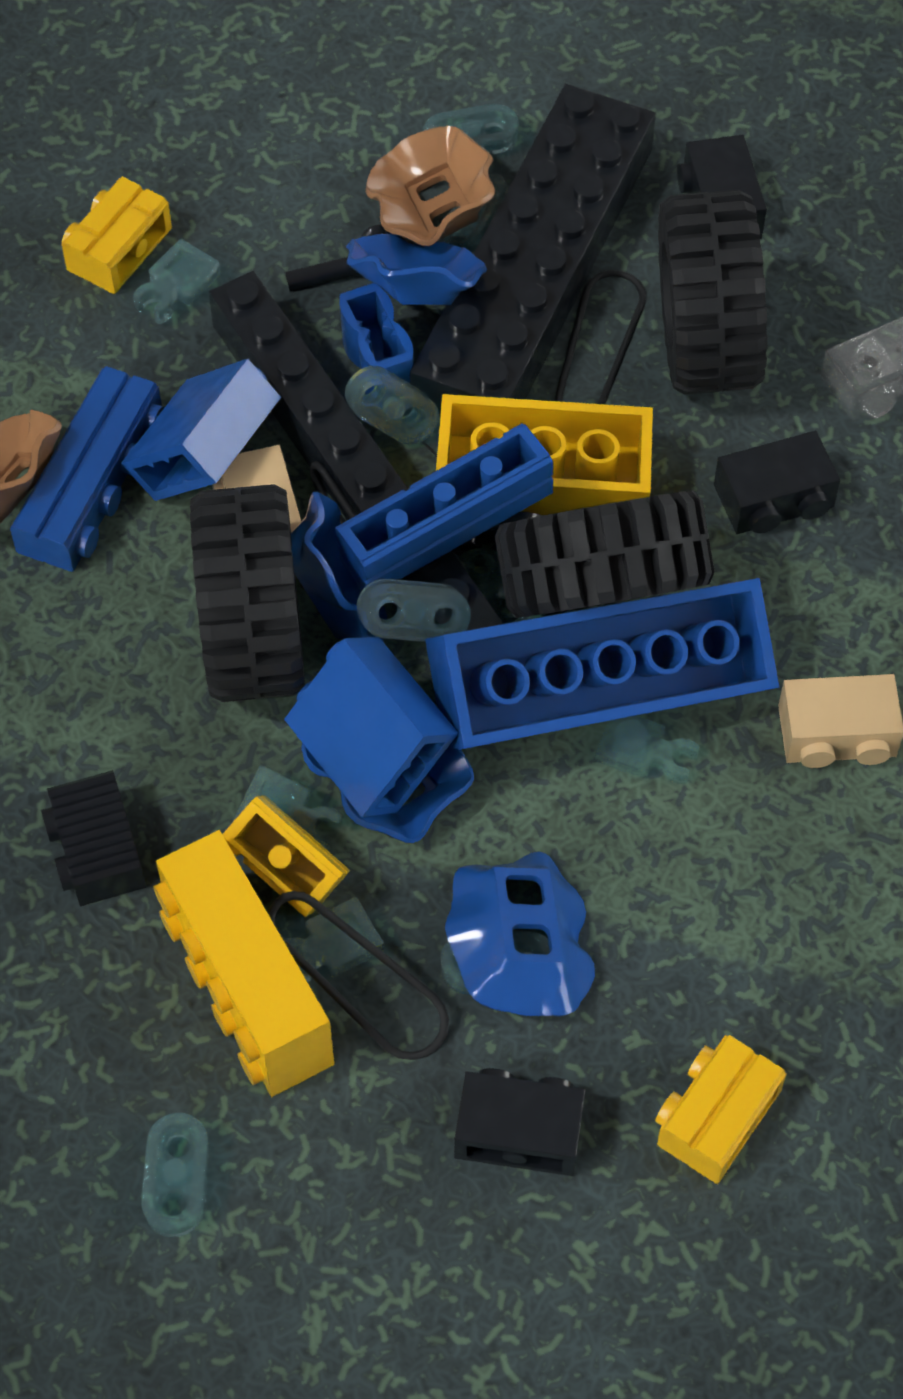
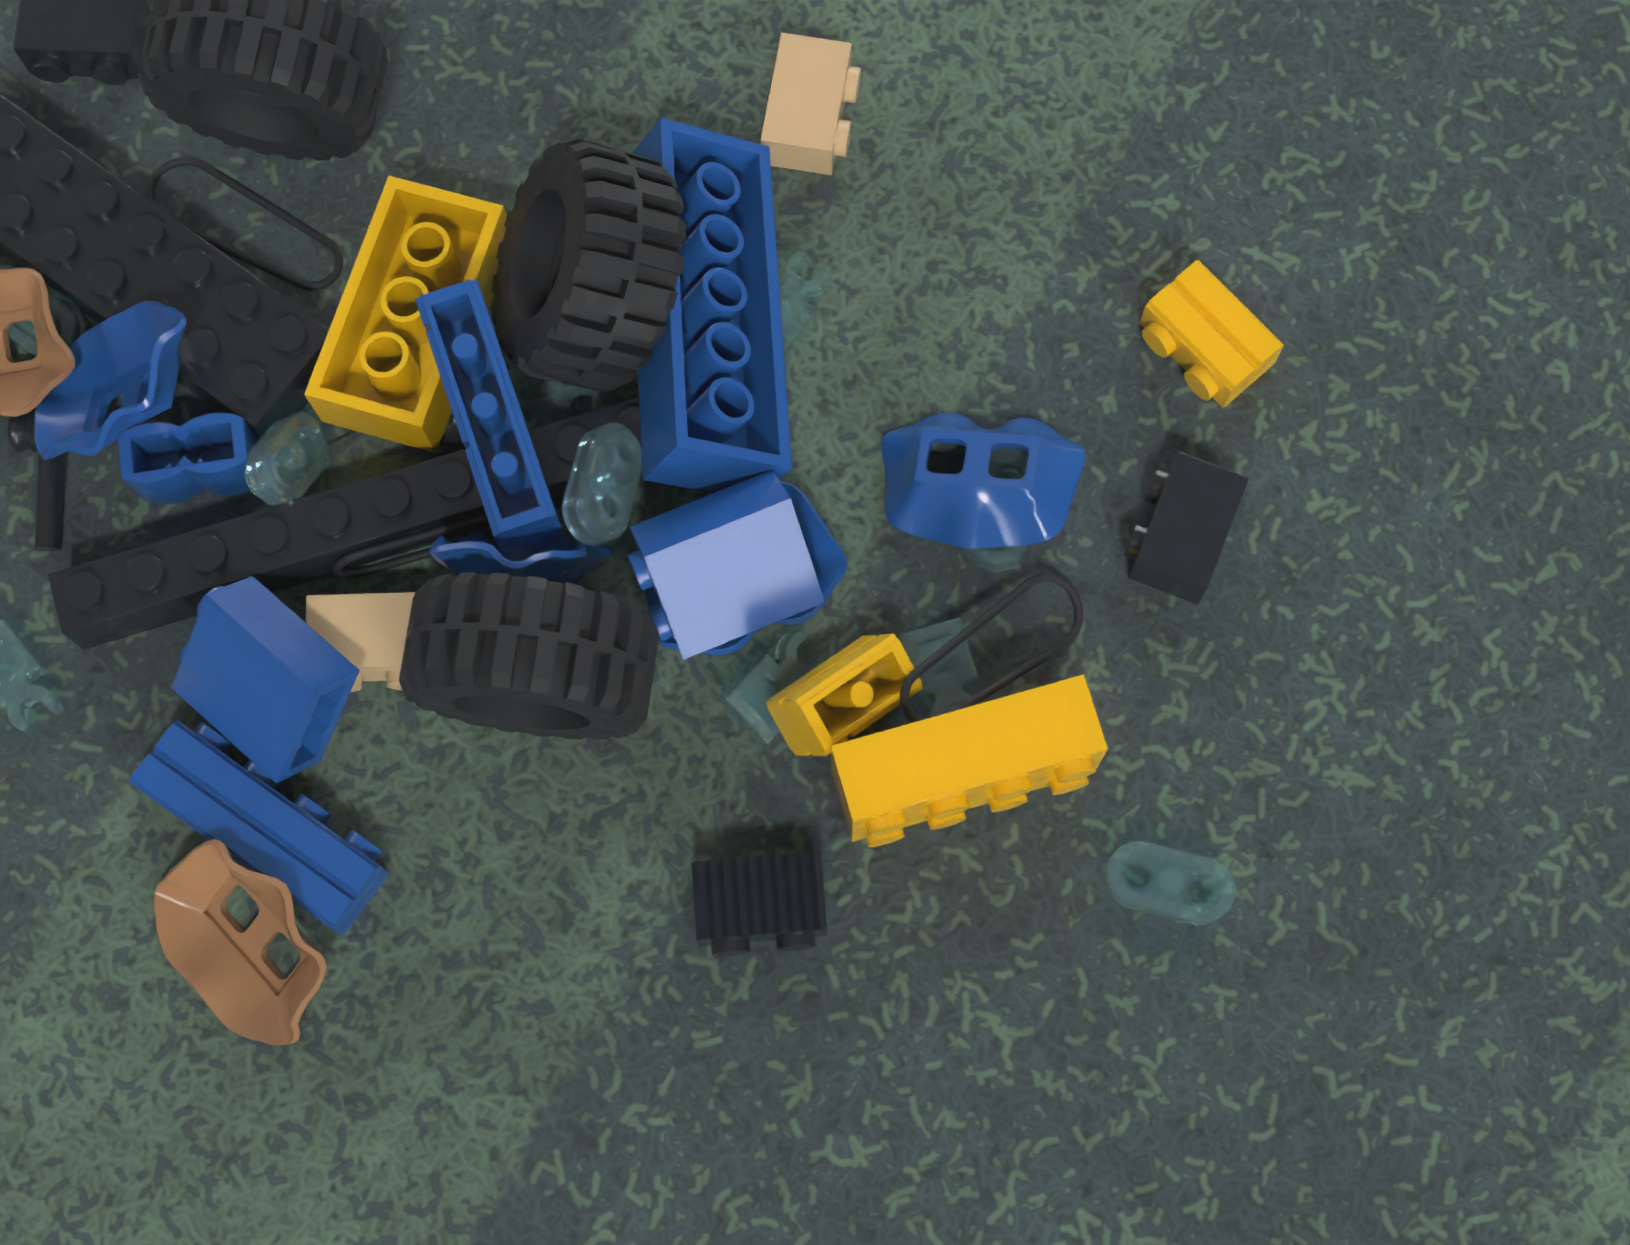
camera: 75 degrees left, 15 degrees up
(776, 483) = (501, 85): black brick -> none

